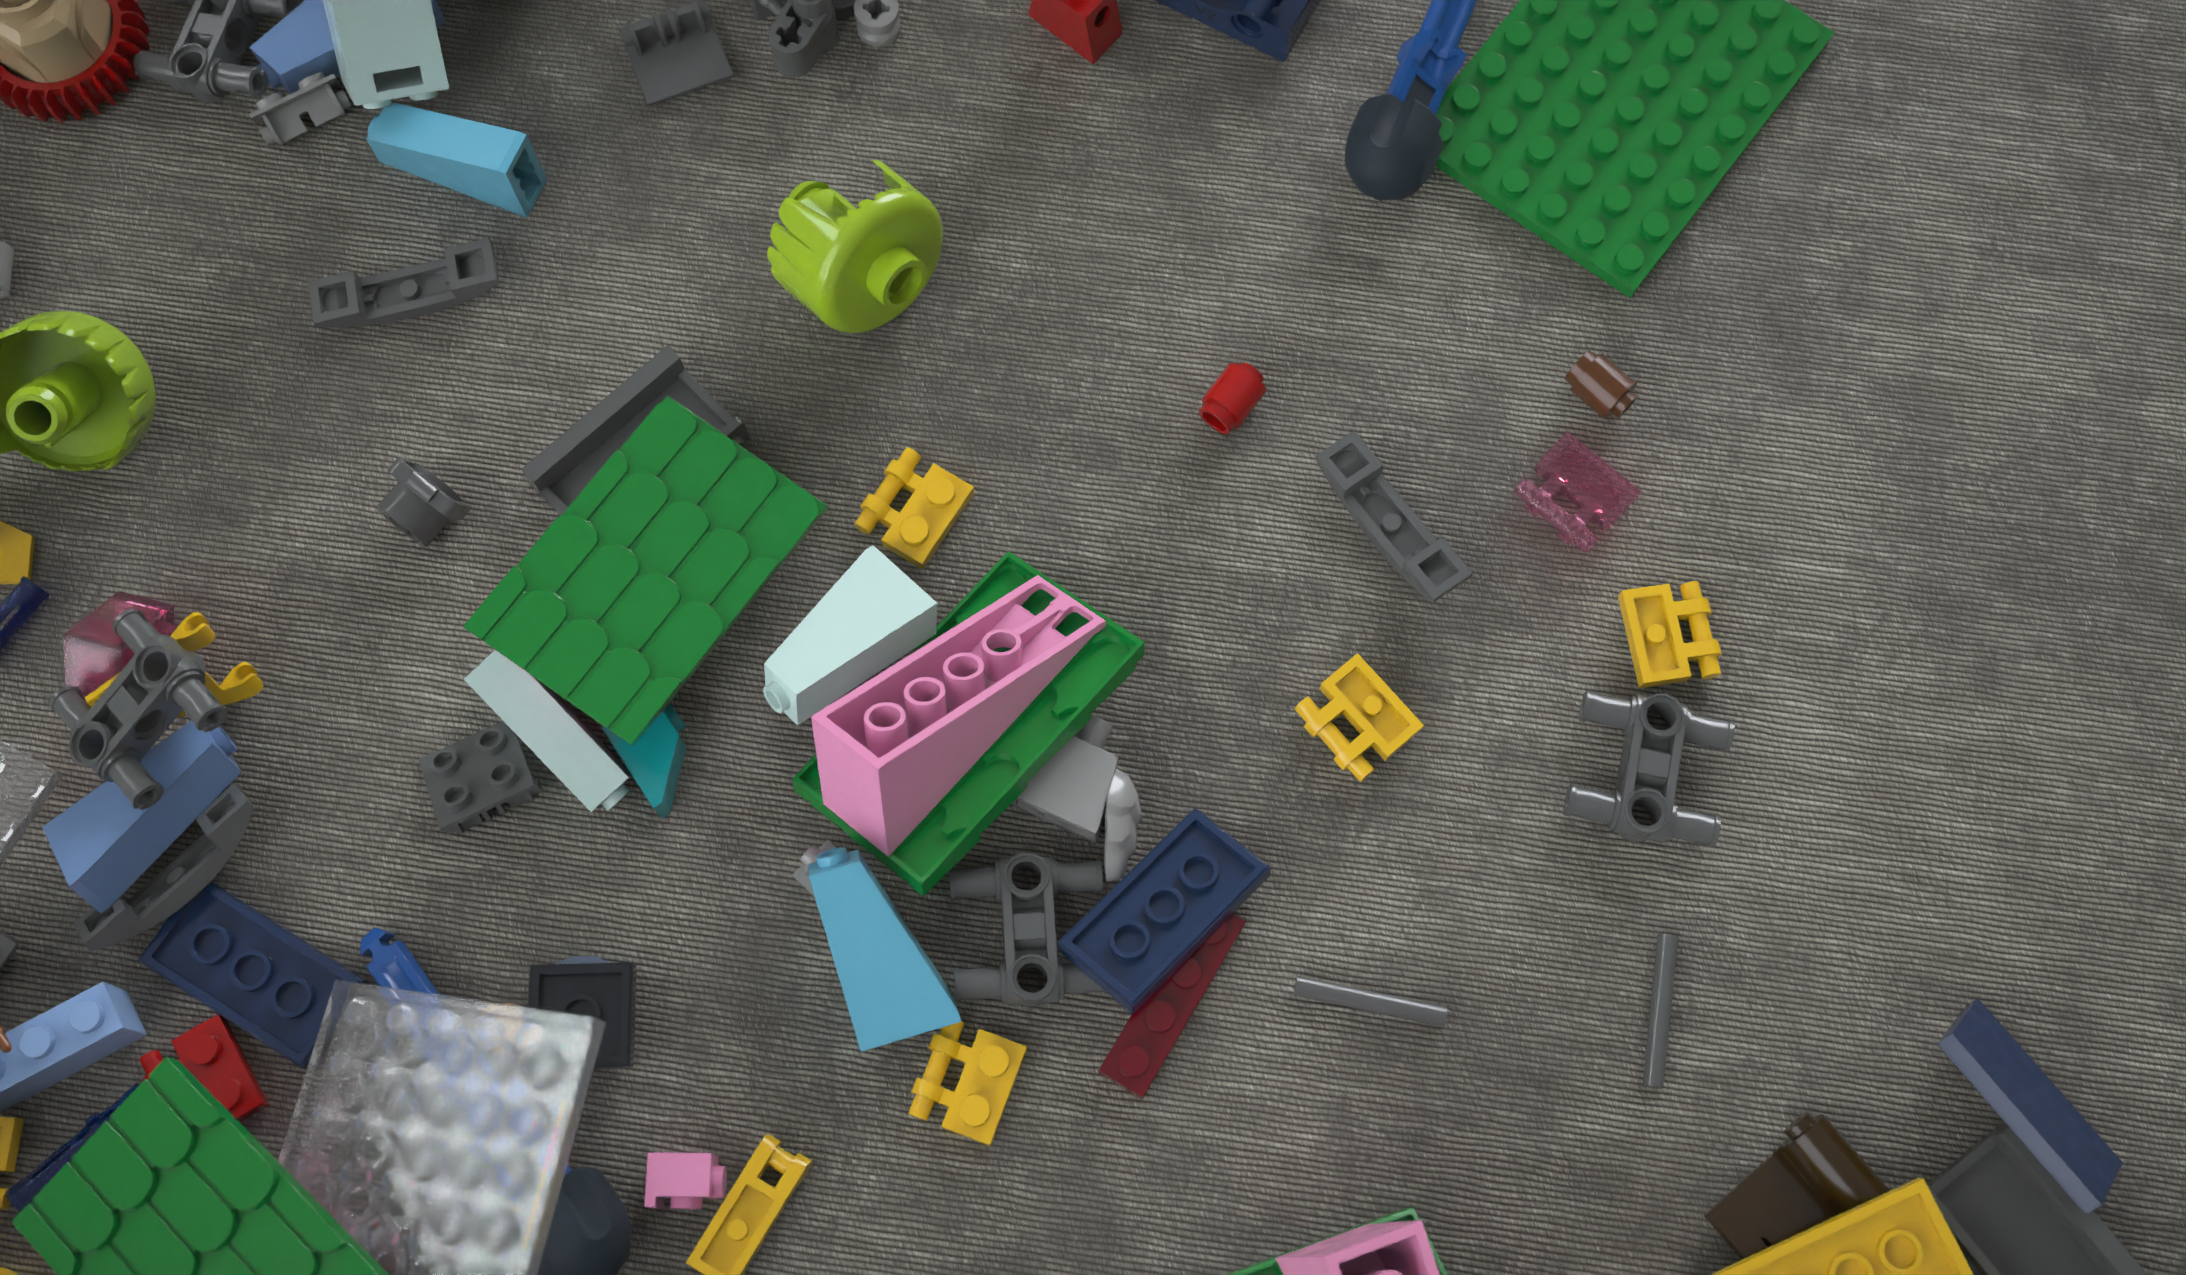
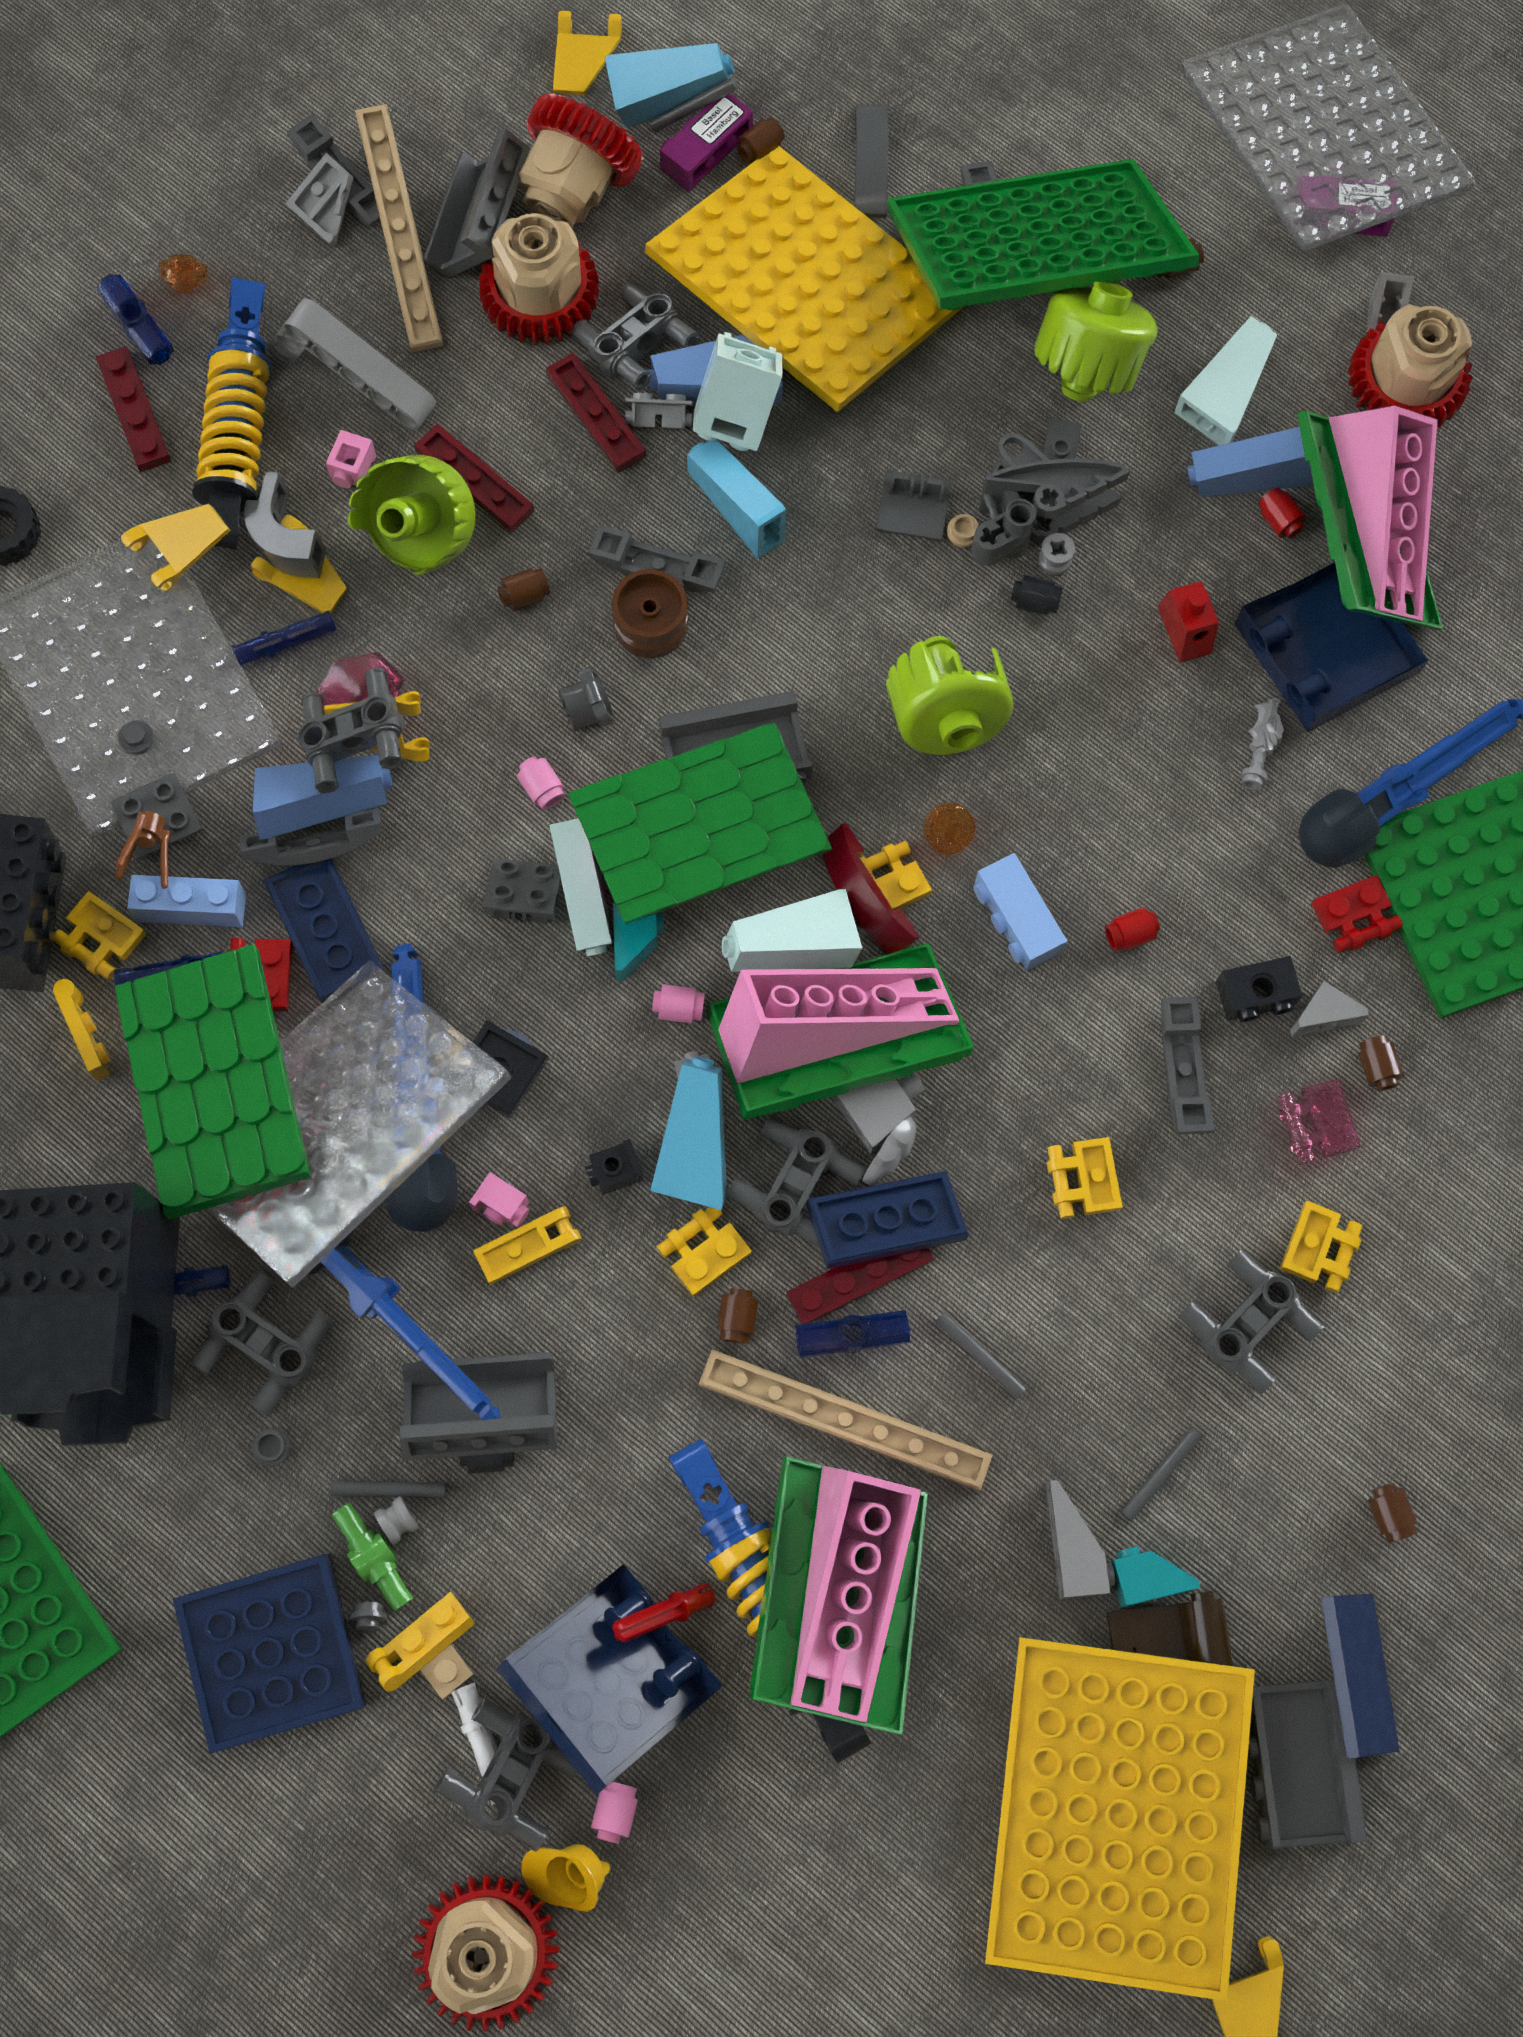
camera: 30 degrees right, 0 degrees up
(137, 314) = (486, 486): none -> dark red plate
(223, 152) = (596, 412): none -> dark red plate
(259, 411) = (523, 588): none -> reddish brown brick
(422, 633) = (540, 782): none -> bright pink brick
(434, 352) = (650, 613): none -> reddish brown wheel
(751, 50) = (962, 530): none -> tan plate
(755, 801) = (678, 1003): none -> bright pink brick
(818, 1048) = (626, 1174): none -> black brick
(884, 76) = (1036, 595): none -> black brick
(915, 549) = (868, 904): none -> dark red slope
(949, 402) = (949, 828): none -> clear orange plate
(1059, 1137) = (737, 1316): none -> reddish brown brick
(1091, 452) = (1019, 912): none -> light blue brick
(1183, 1095) = (877, 1331): none -> clear blue piece
(1244, 93) = (1266, 737): none -> light grey piece
(1261, 1181) = (845, 1420): none -> tan tile
(1426, 357) = (1274, 976): none -> black brick
(1456, 225) = (1353, 904): none -> red plate
(1506, 359) = (1328, 1011): none -> light grey slope
(1632, 1171) = (1077, 1554): none -> light grey slope
(1725, 1145) = (1148, 1577): none -> teal slope
(1941, 890) = (1392, 1512): none -> reddish brown brick

